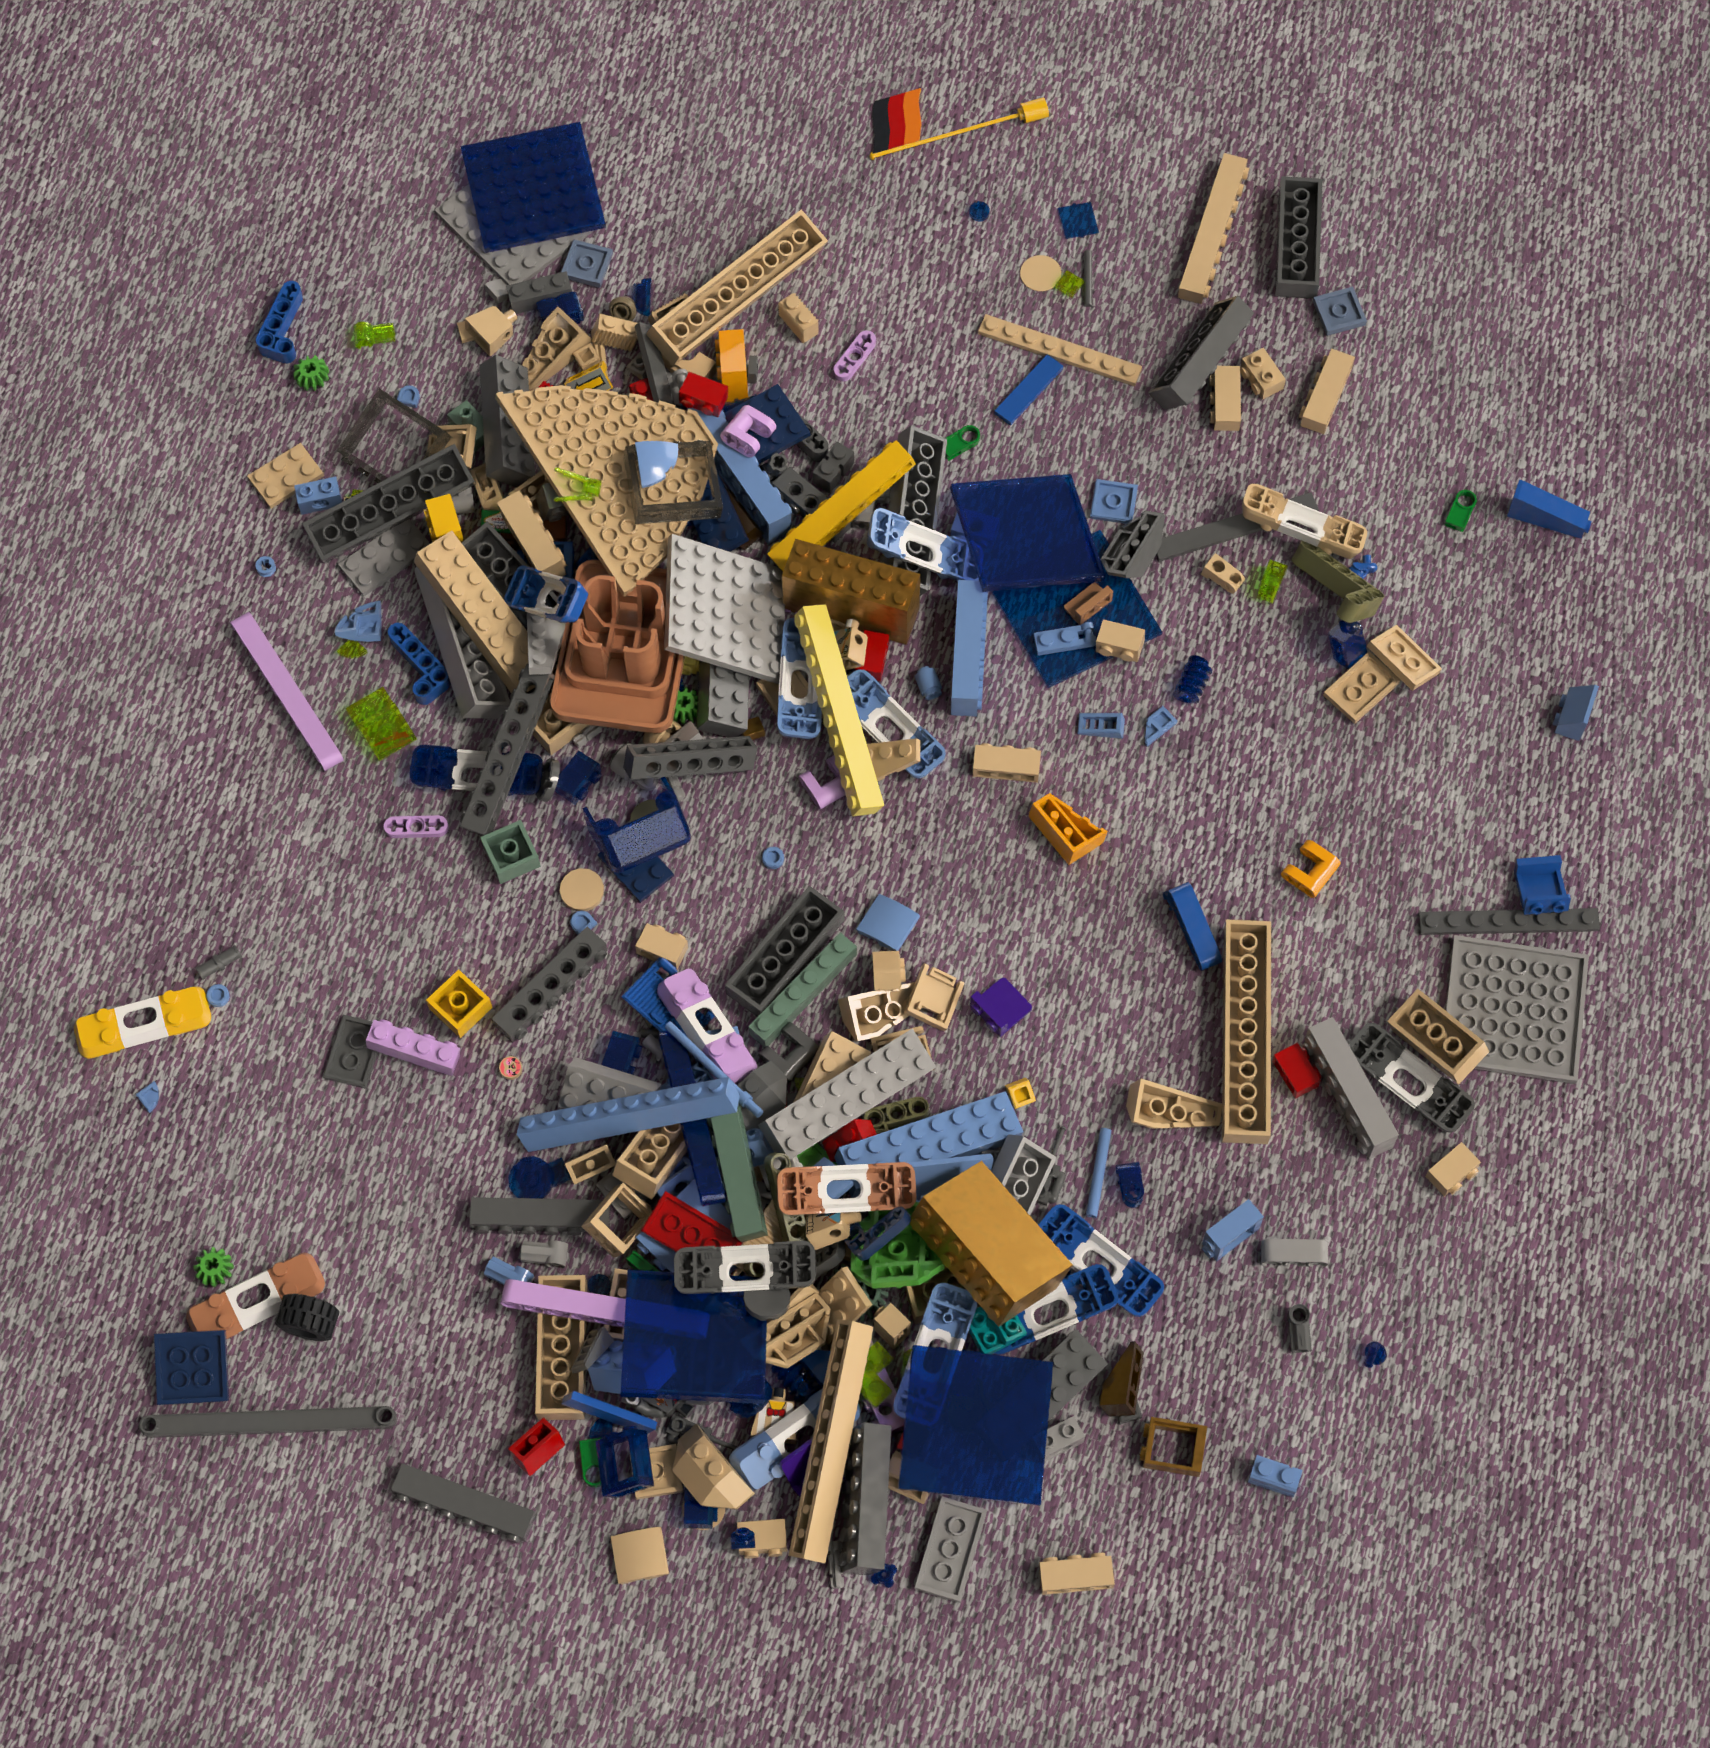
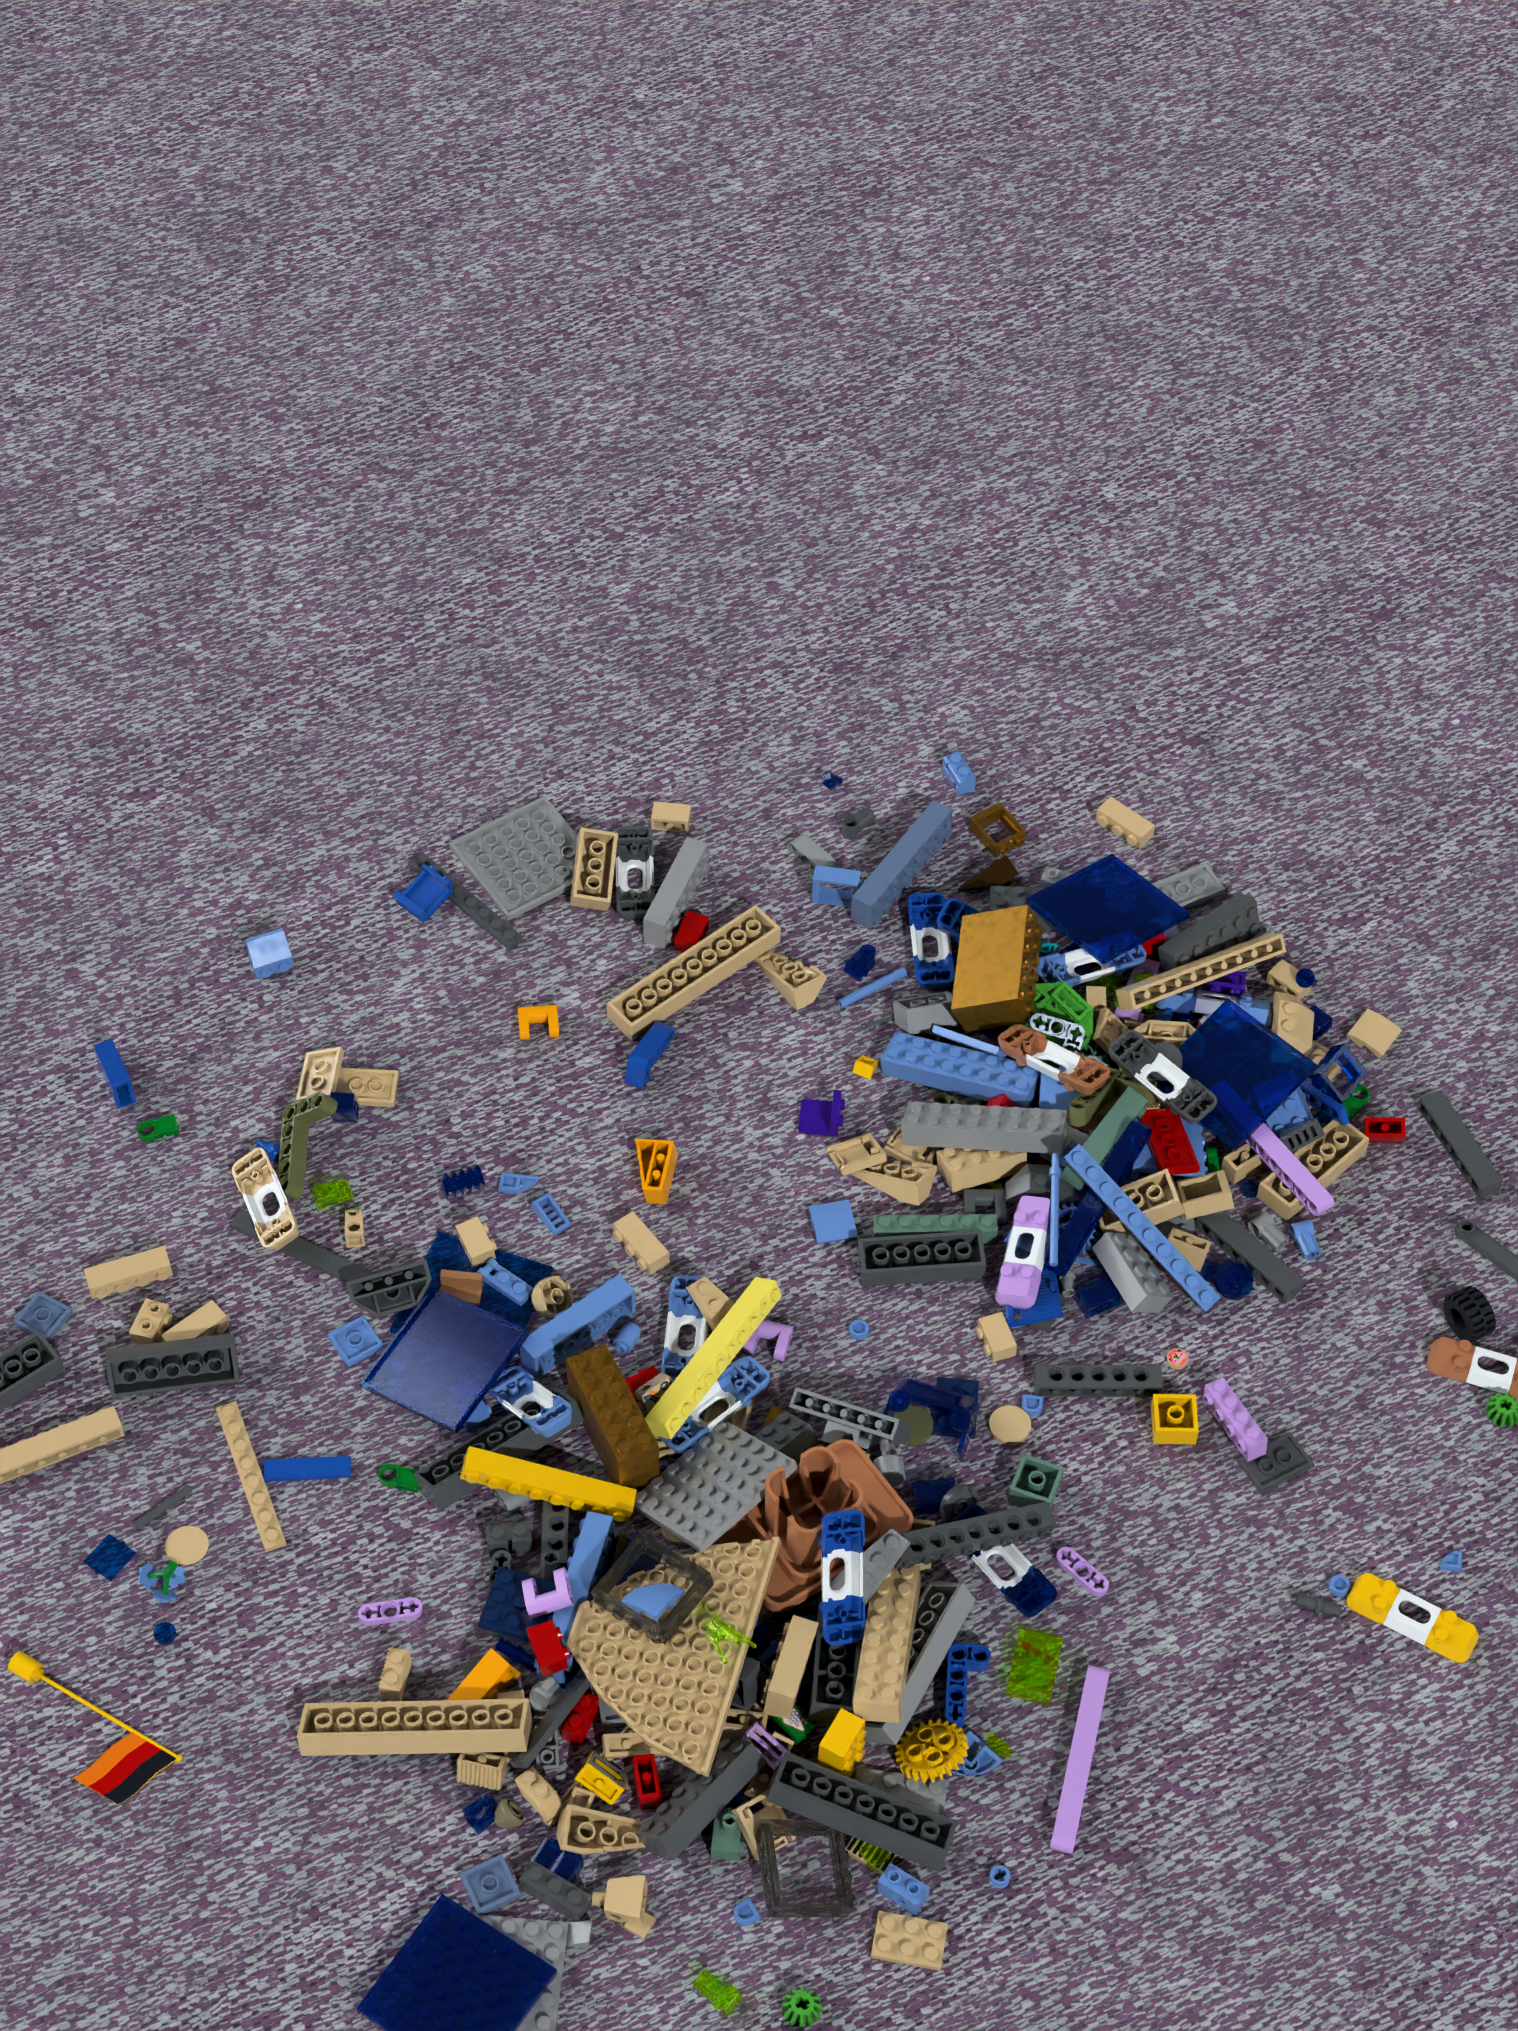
camera: 135 degrees left, 15 degrees down
(388, 594) = (931, 1750): none -> yellow gear
(497, 484) = (756, 1725): none -> lavender tile
(888, 970) = (870, 1187): tan brick -> none
(1012, 229) = (171, 1575): none -> medium blue plant
(1012, 652) = (552, 1296): none -> tan cylinder
(1069, 284) = (180, 1515): clear neon green tile -> none
(1205, 1312) = (901, 865): none -> sand blue brick

